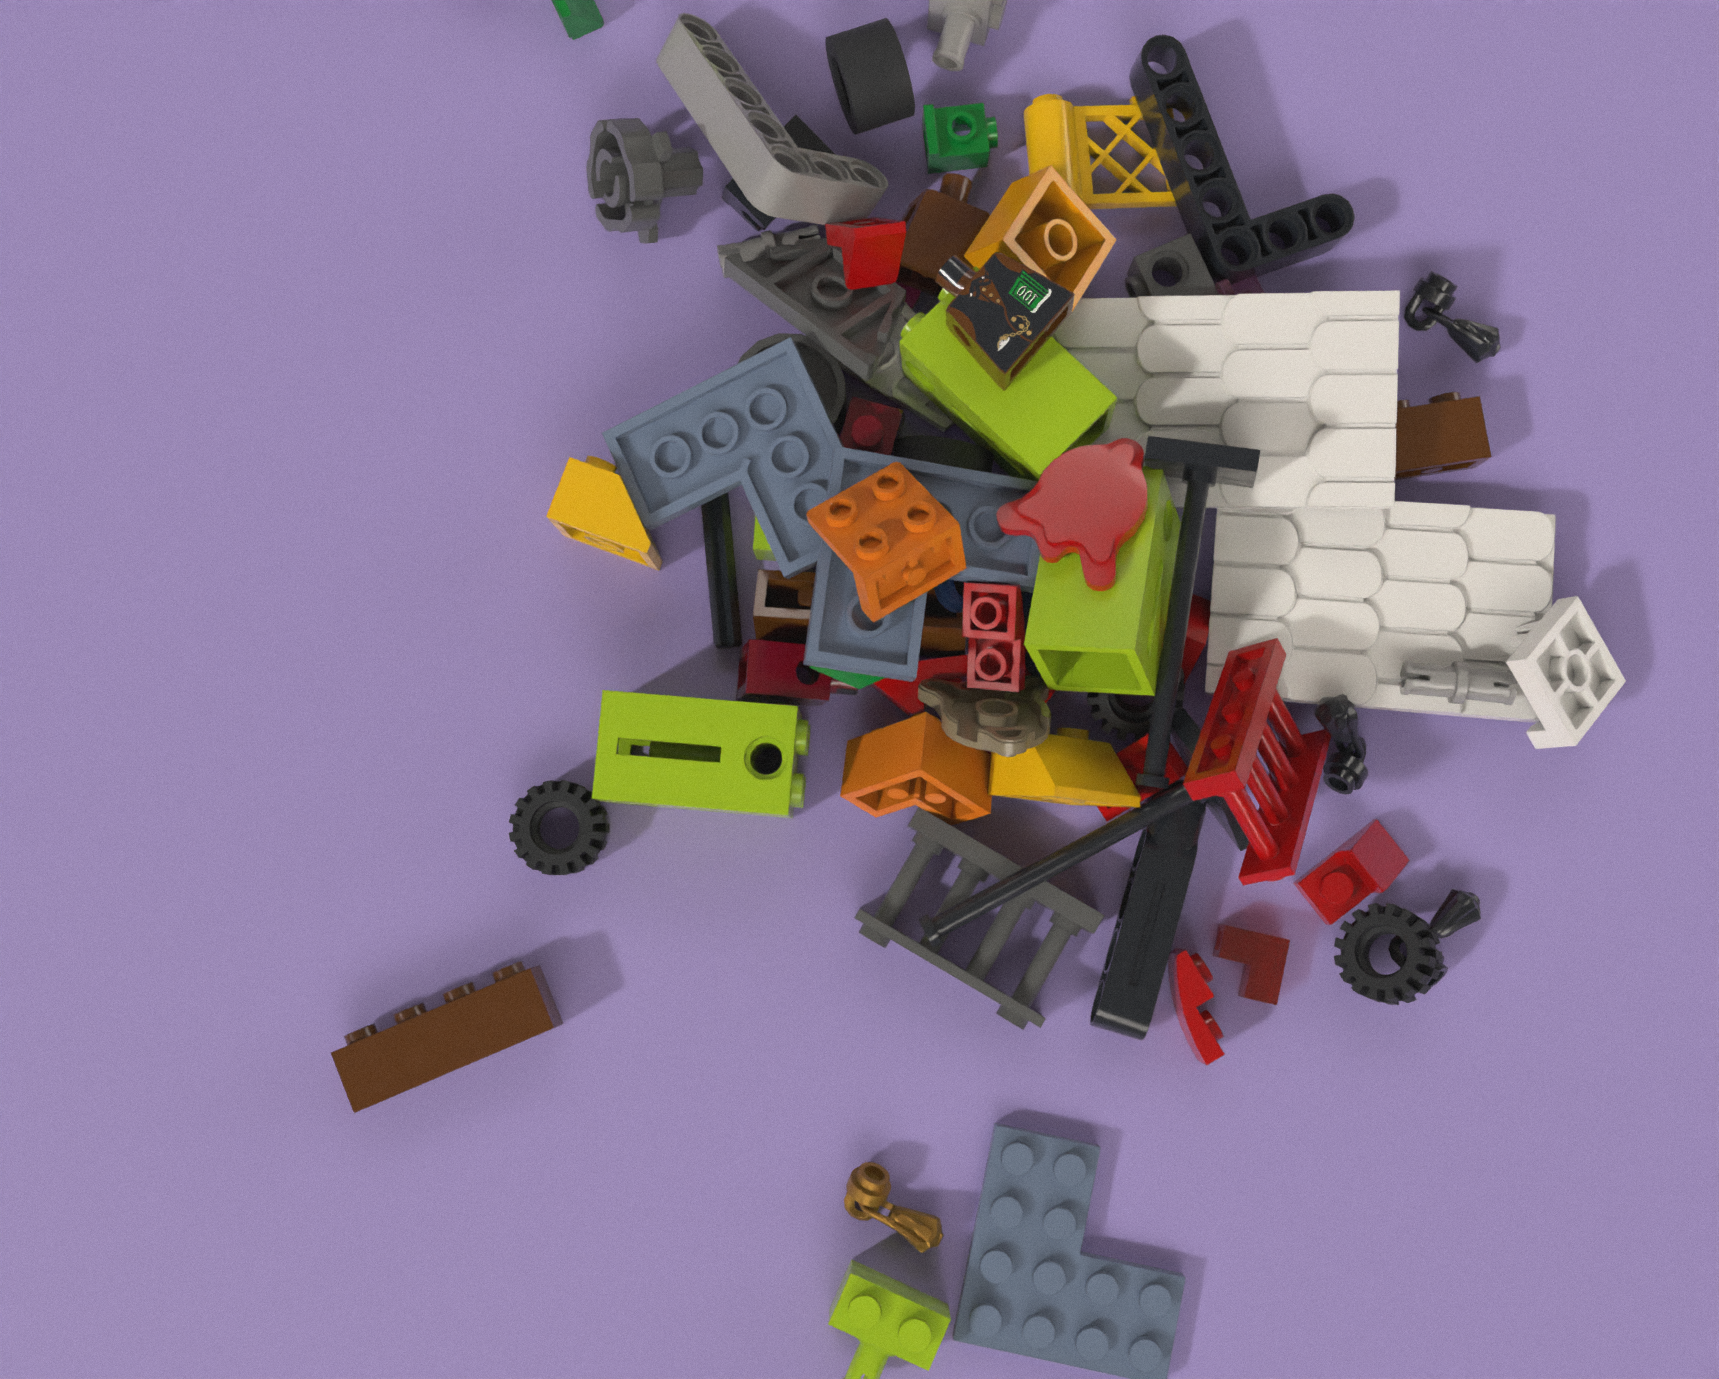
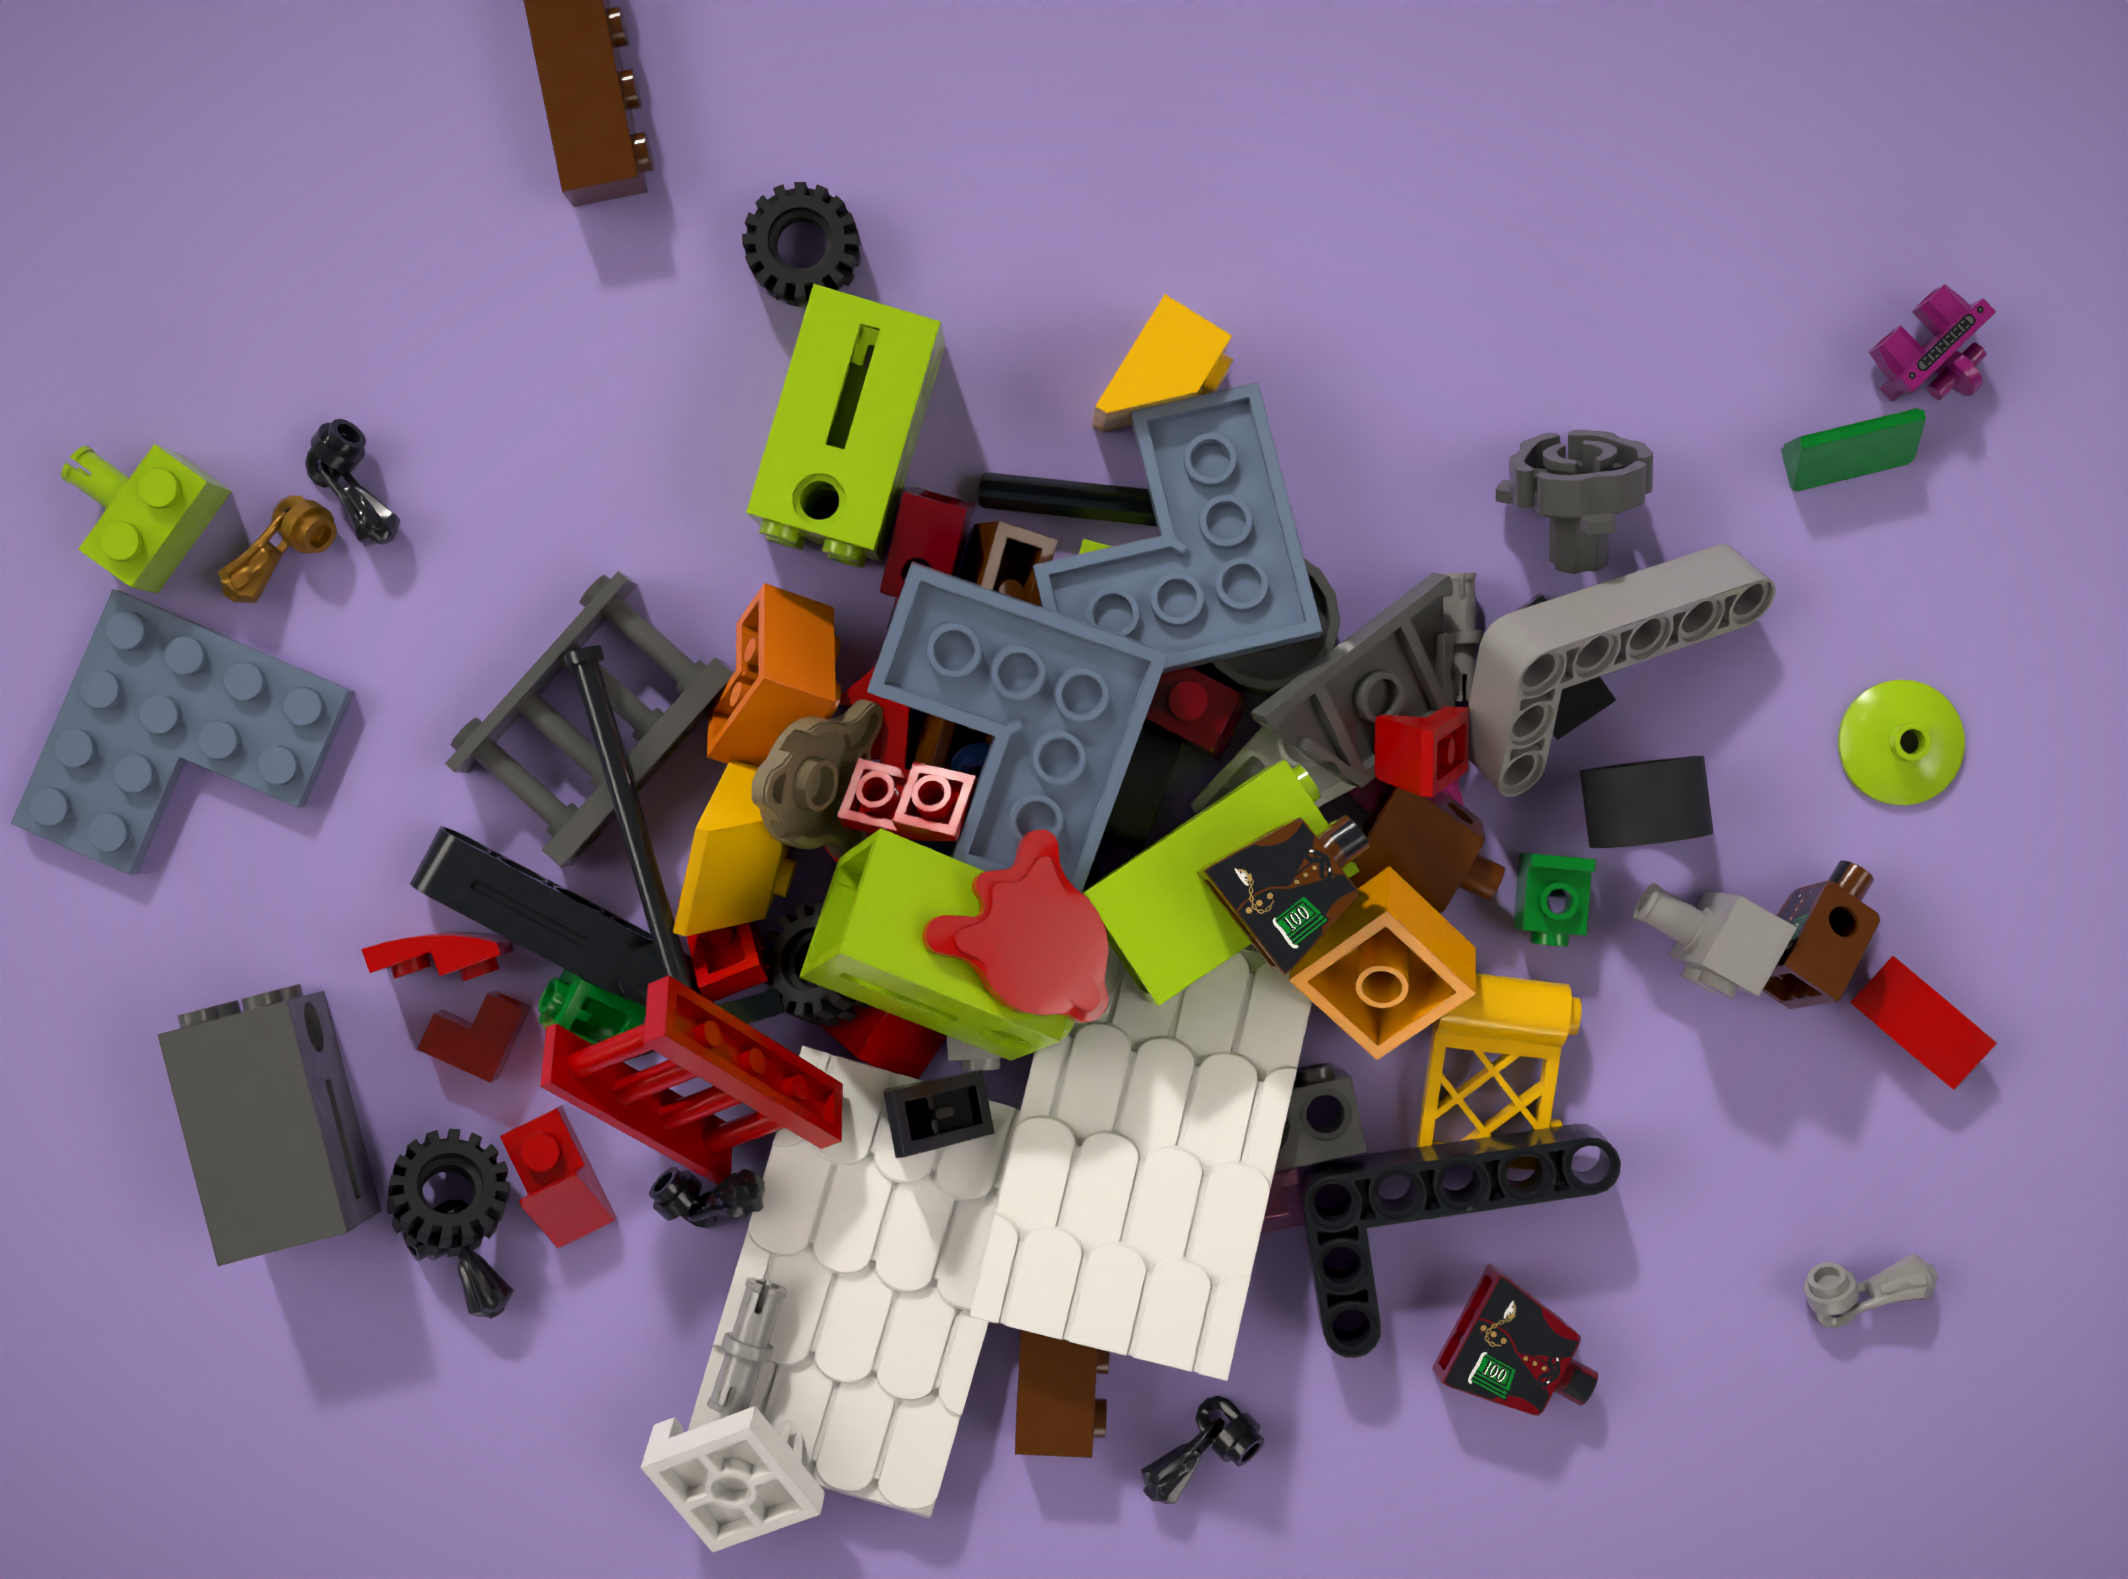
camera: 100 degrees right, 5 degrees up
(799, 1171) = (342, 448): none -> black piece
(890, 538) = (1039, 692): orange bracket -> none
(1199, 467) = (1054, 1089): black tile -> none
(1214, 878) = (587, 1008): none -> green bracket
(1238, 572) = (938, 1113): none -> black slope
(1317, 97) = (1513, 1349): none -> torso
(1367, 1111) = (269, 1123): none -> dark grey brick

